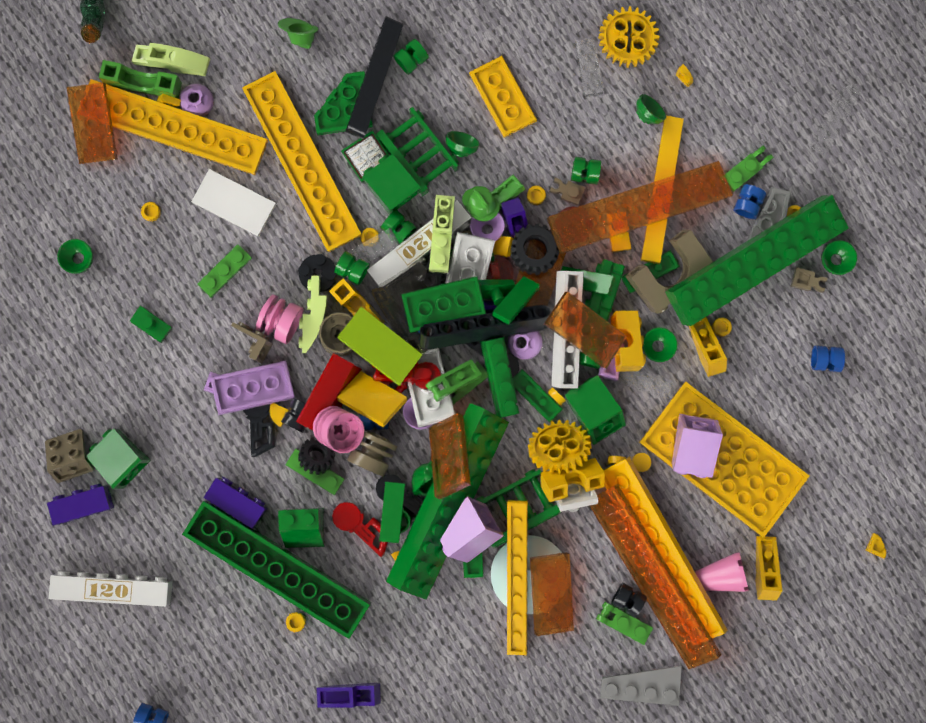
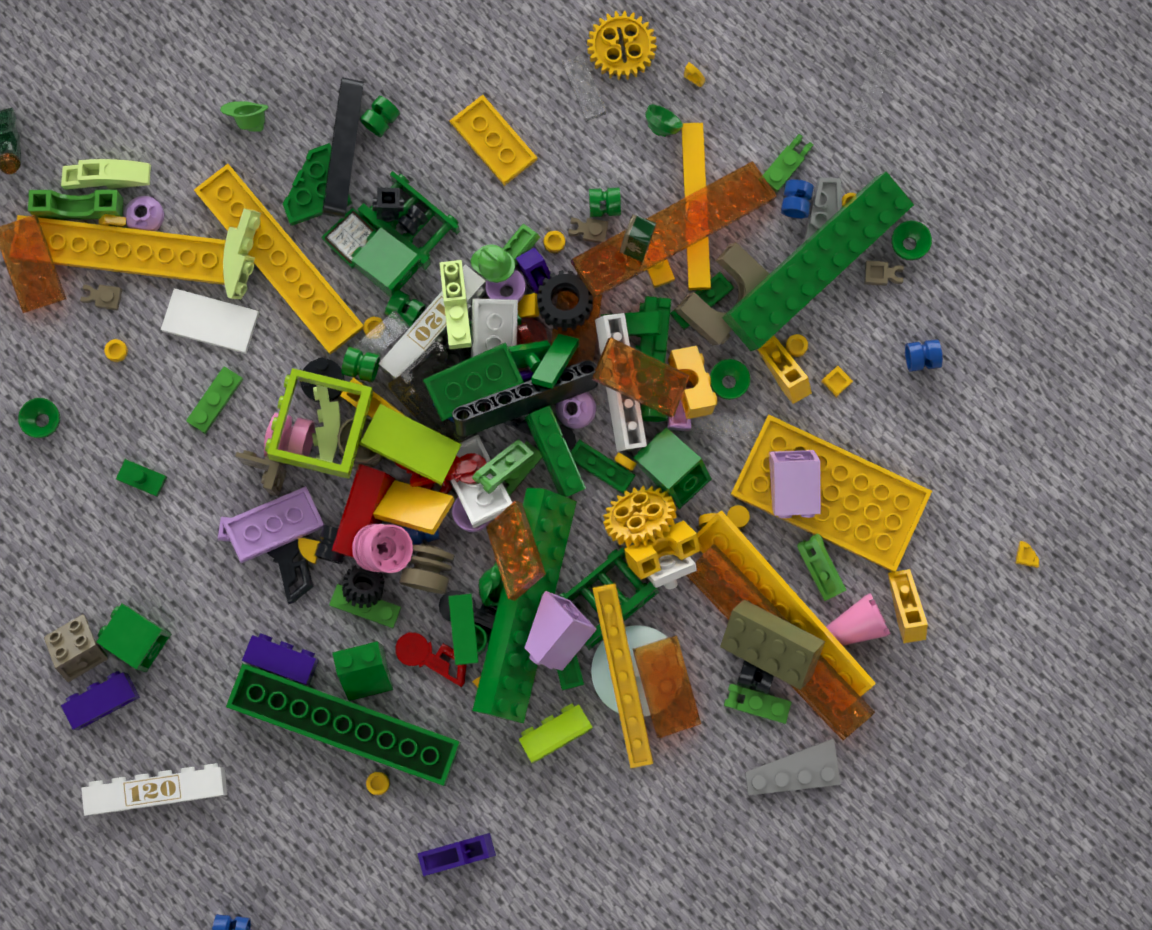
camera: 10 degrees left, 5 degrees down
(150, 164) = (105, 297): none -> dark tan plate
(266, 157) = (236, 261): none -> yellowish green slope
(335, 328) = (343, 470): none -> lime window
(402, 135) = (388, 204): none -> black brick
(420, 153) = (412, 220): none -> black wheel
(450, 613) = (555, 732): none -> lime slope
(461, 143) = (457, 201): green piece -> none
(608, 210) = (637, 237): none -> dark green piece
(648, 579) = (772, 644): none -> olive brick
(702, 520) = (821, 567): none -> bright green plate
(749, 364) = (837, 381): none -> yellow tile

